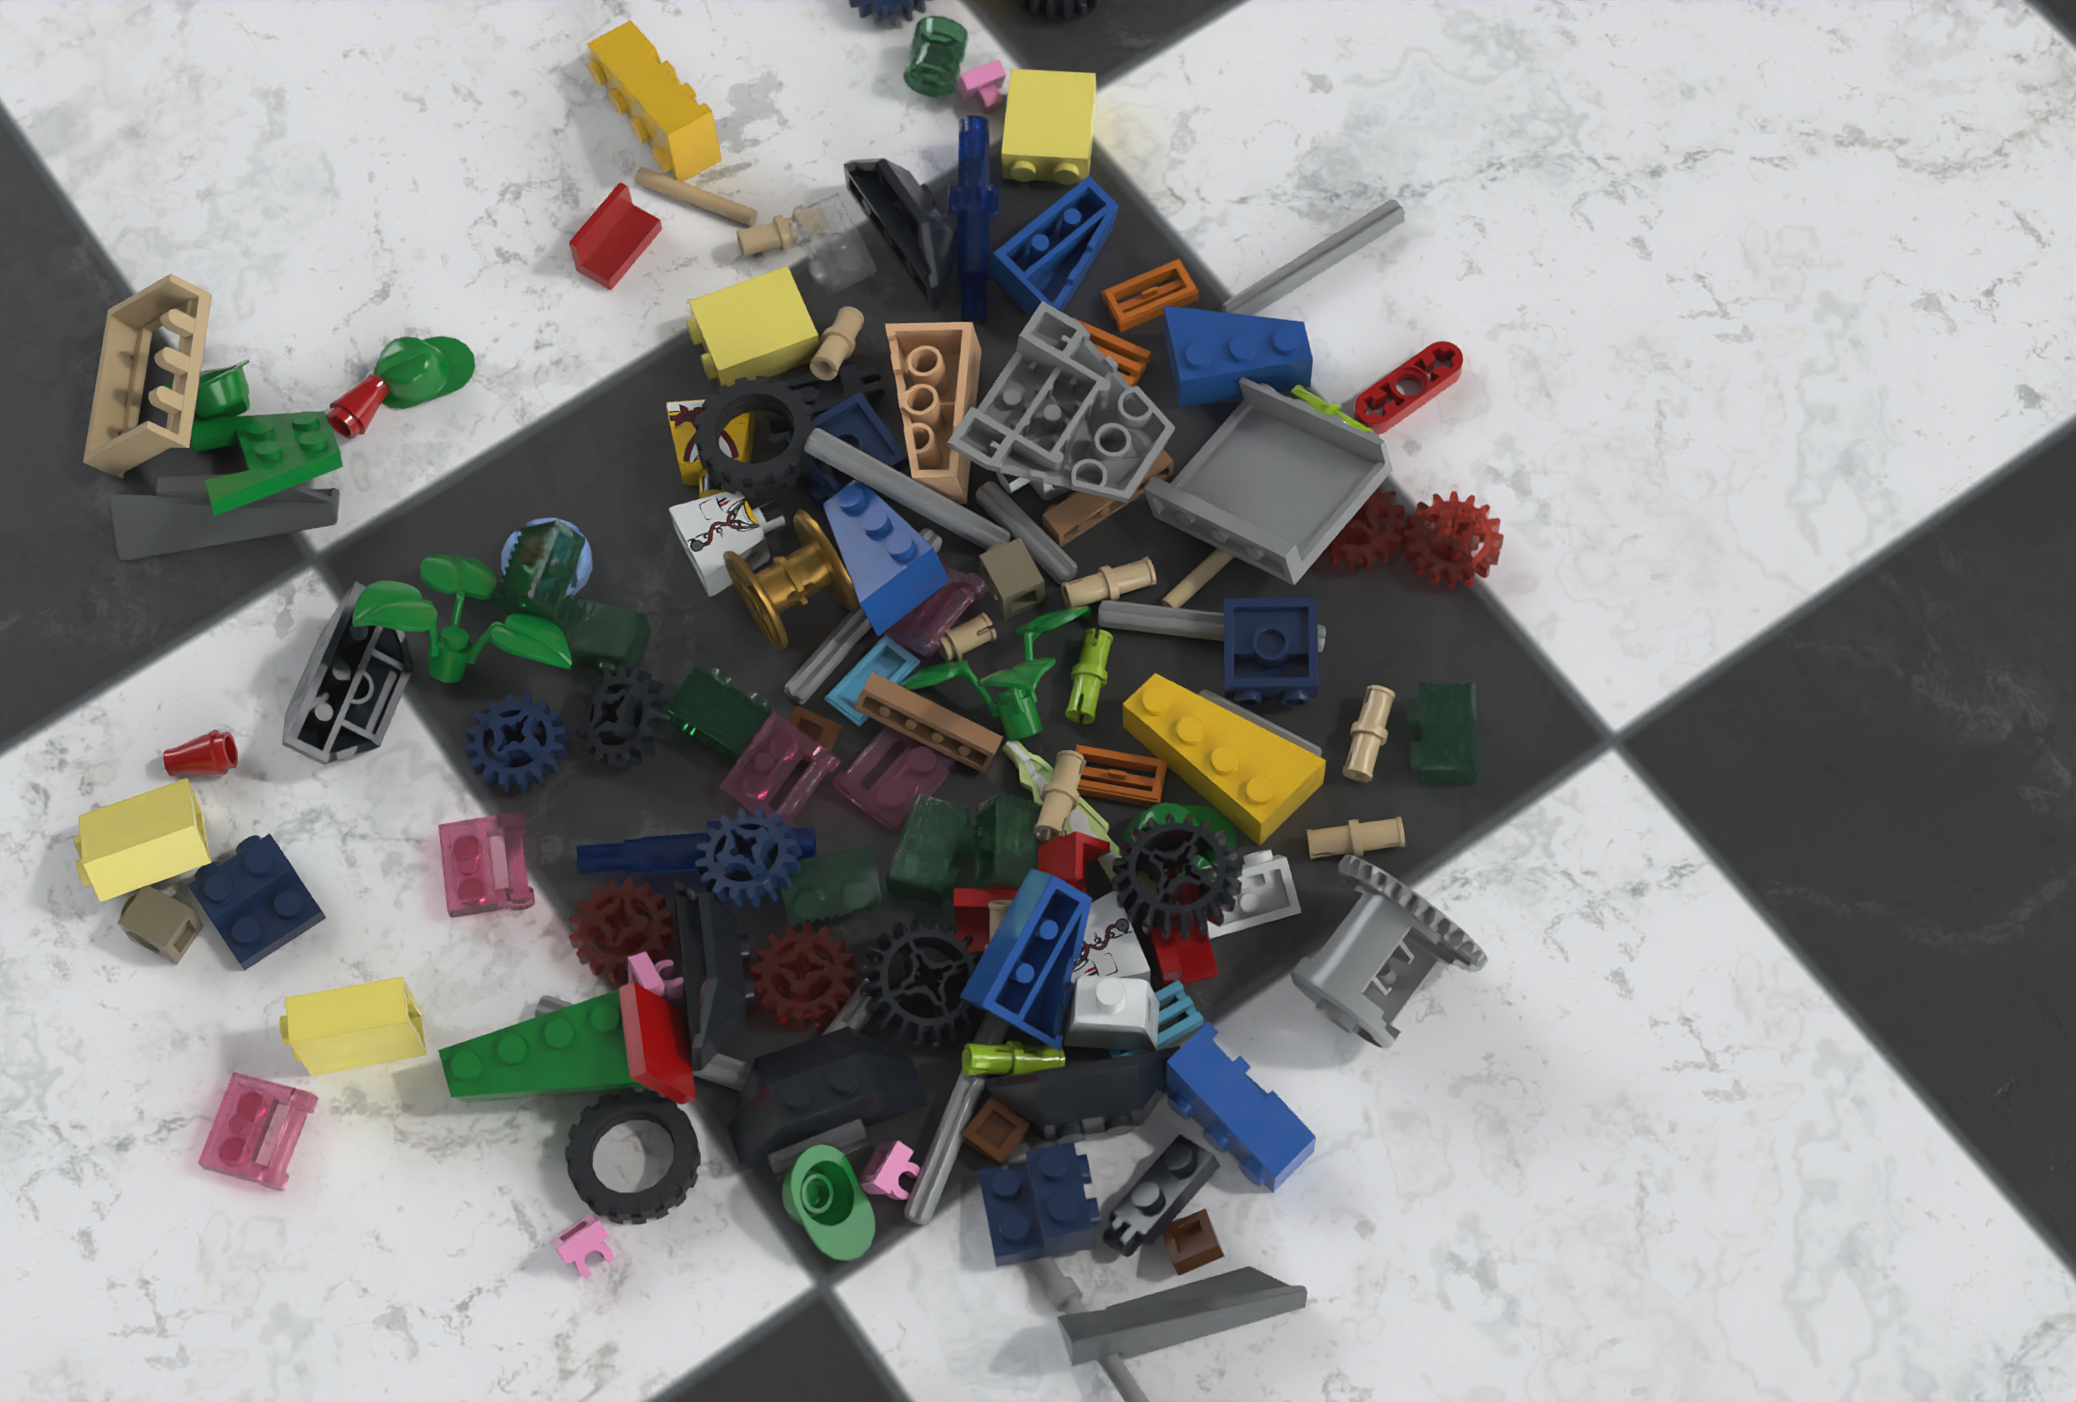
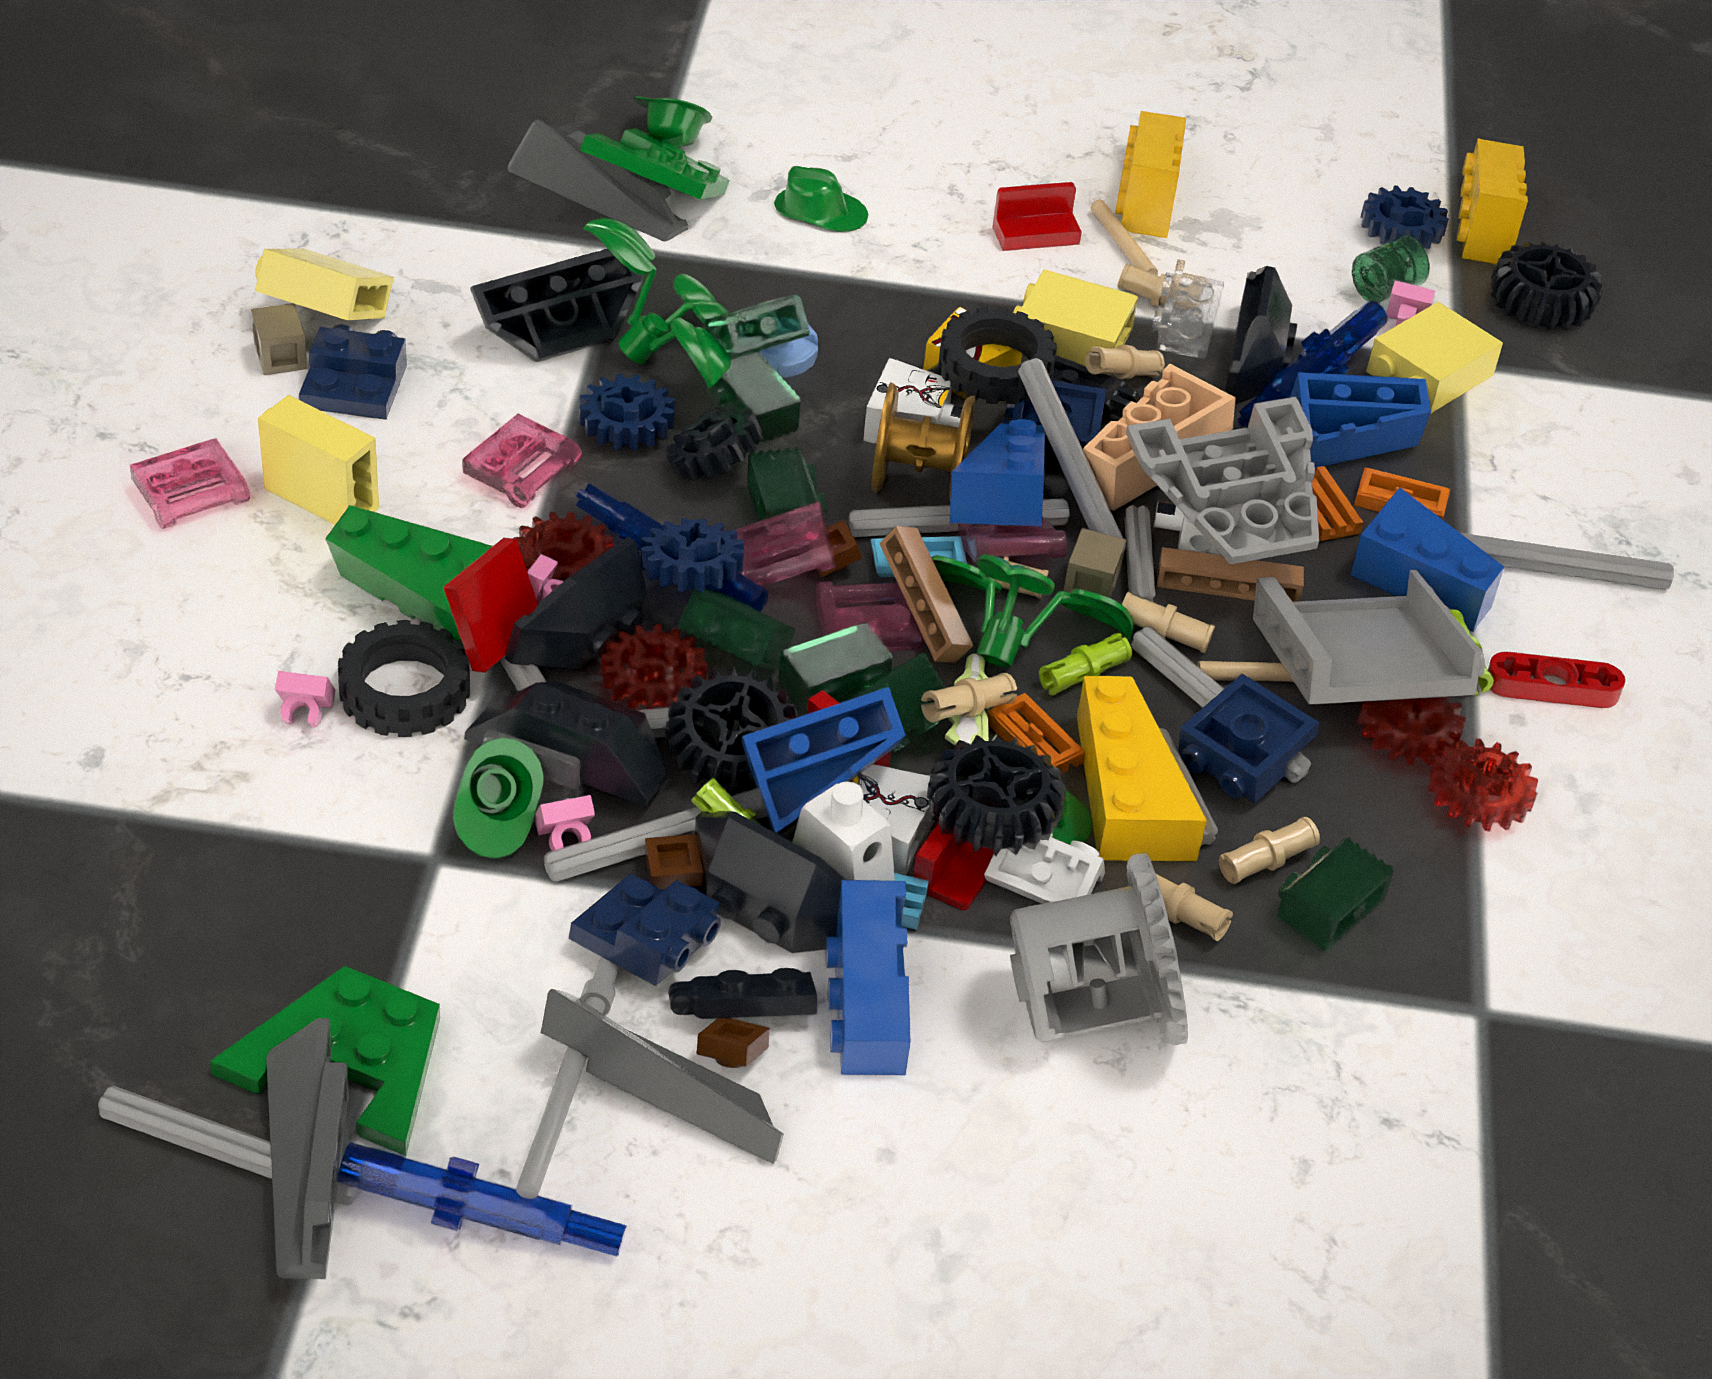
camera: 35 degrees right, 20 degrees down
(113, 436) = (637, 80): tan window -> none
(204, 755) = (423, 282): red cone -> none
(357, 407) = (752, 189): red cone -> none
(1068, 857) = (926, 738): red panel -> none

